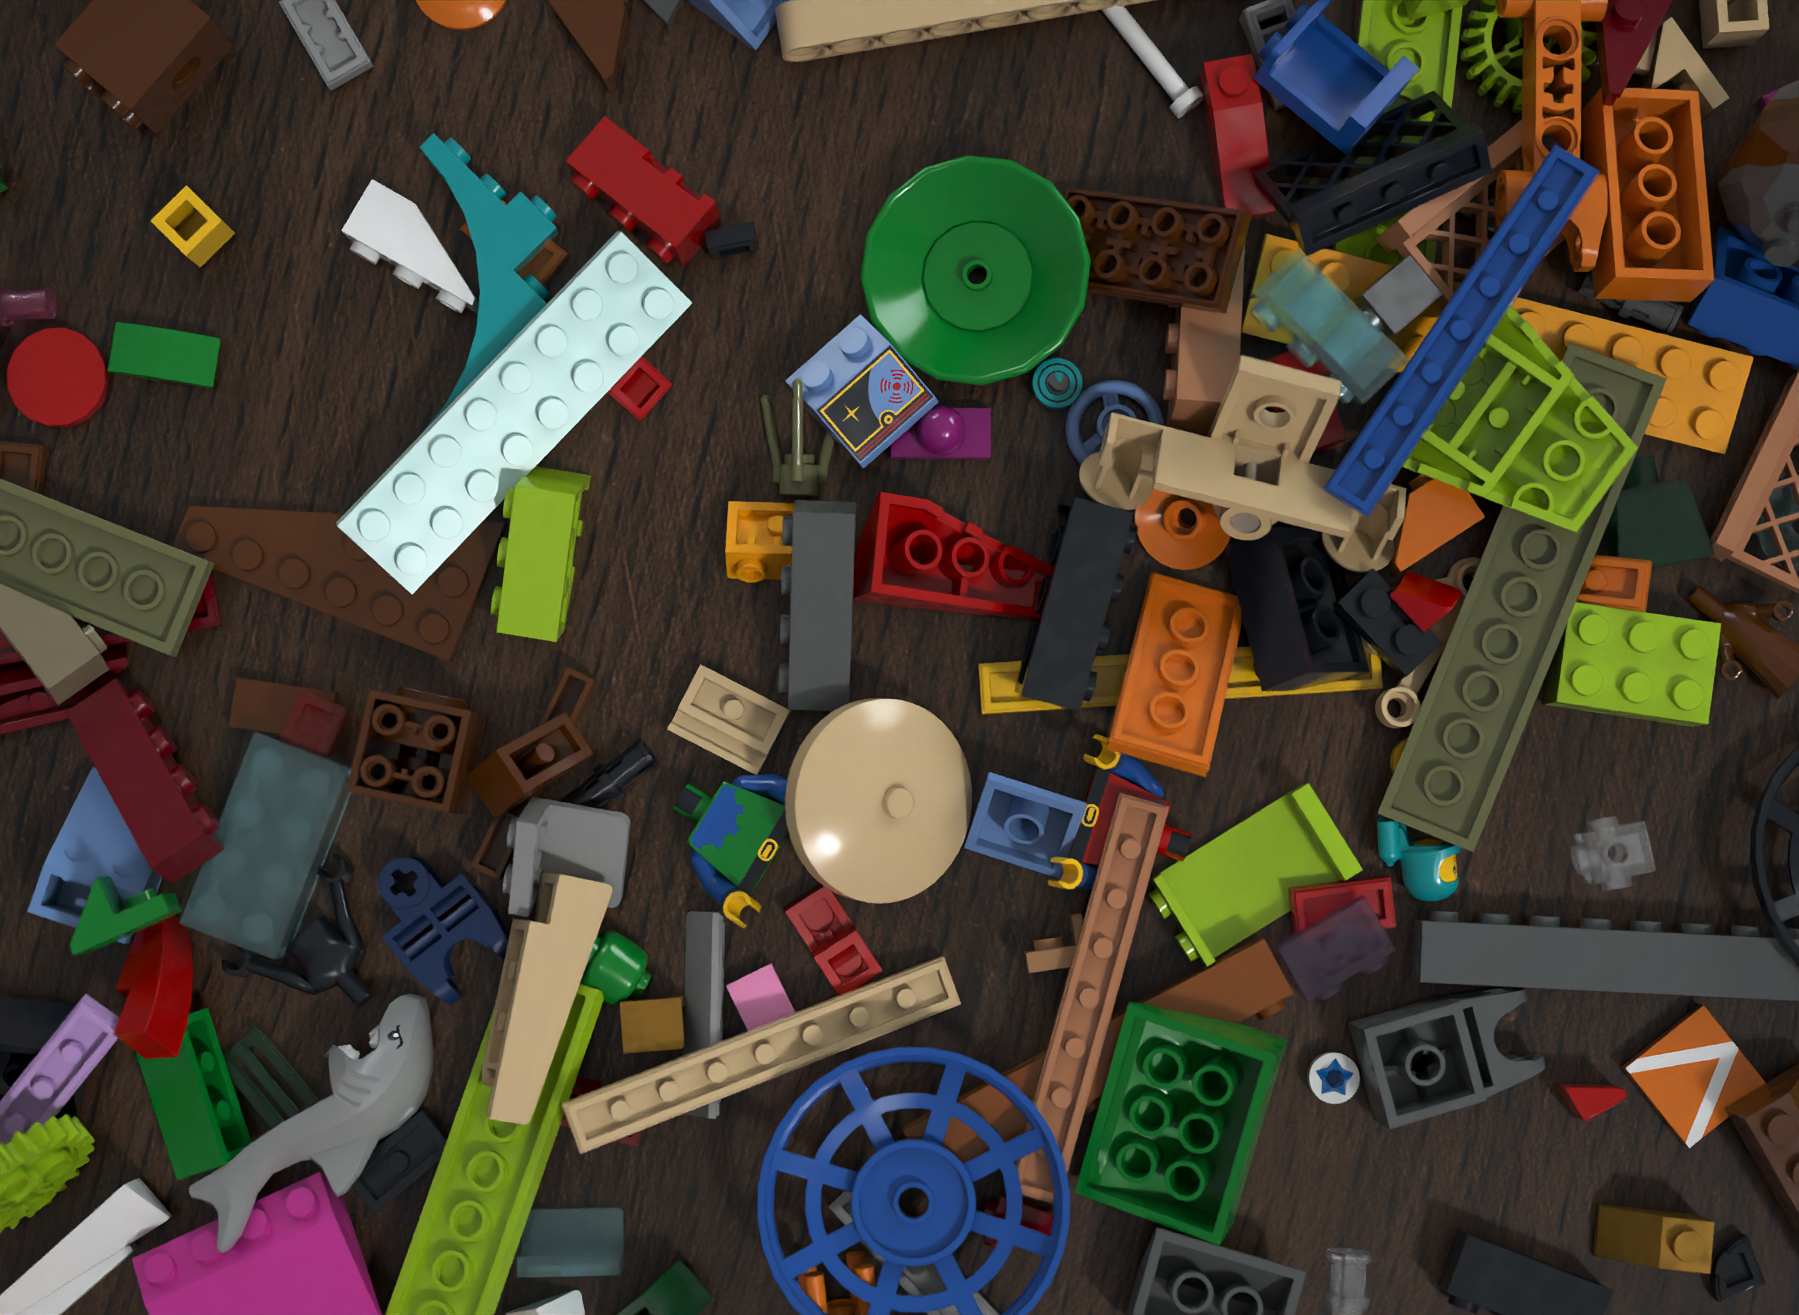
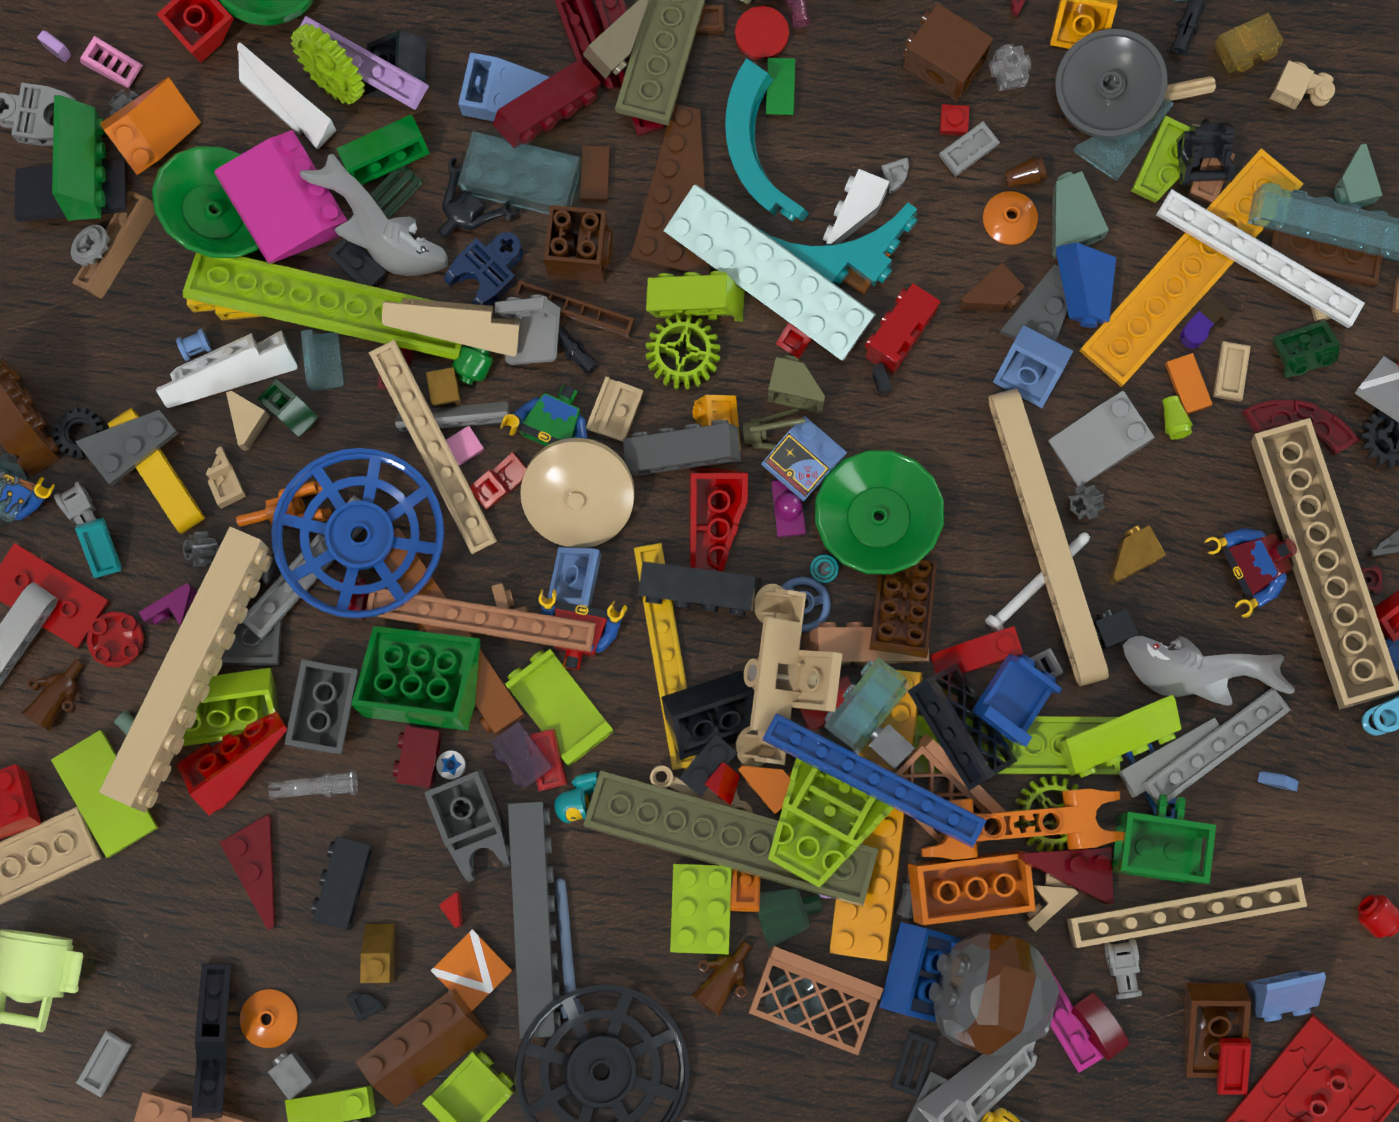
camera: 90 degrees right, 5 degrees down
(107, 921) = (470, 93): green slope -> none
(156, 990) = (438, 123): red slope -> none
(192, 226) = (851, 91): yellow brick -> none
(227, 434) = (740, 136): none -> teal arch
(267, 54) = (954, 119): none -> red plate
(314, 724) = (586, 187): clear red tile -> none
(353, 170) = (895, 173): none -> light grey tile
(529, 764) = (577, 303): reddish brown slope -> none
(645, 562) = (670, 349): none -> lime gear
(727, 392) = (794, 386): none -> olive slope
(1174, 541) = (744, 643): orange dish -> none
(1177, 674) = (665, 648): orange tile -> none
(1316, 1134) = (418, 757): none -> dark red brick
(1629, 852) = (597, 917): clear brick -> none
(1666, 906) = (565, 942): none -> sand blue piece

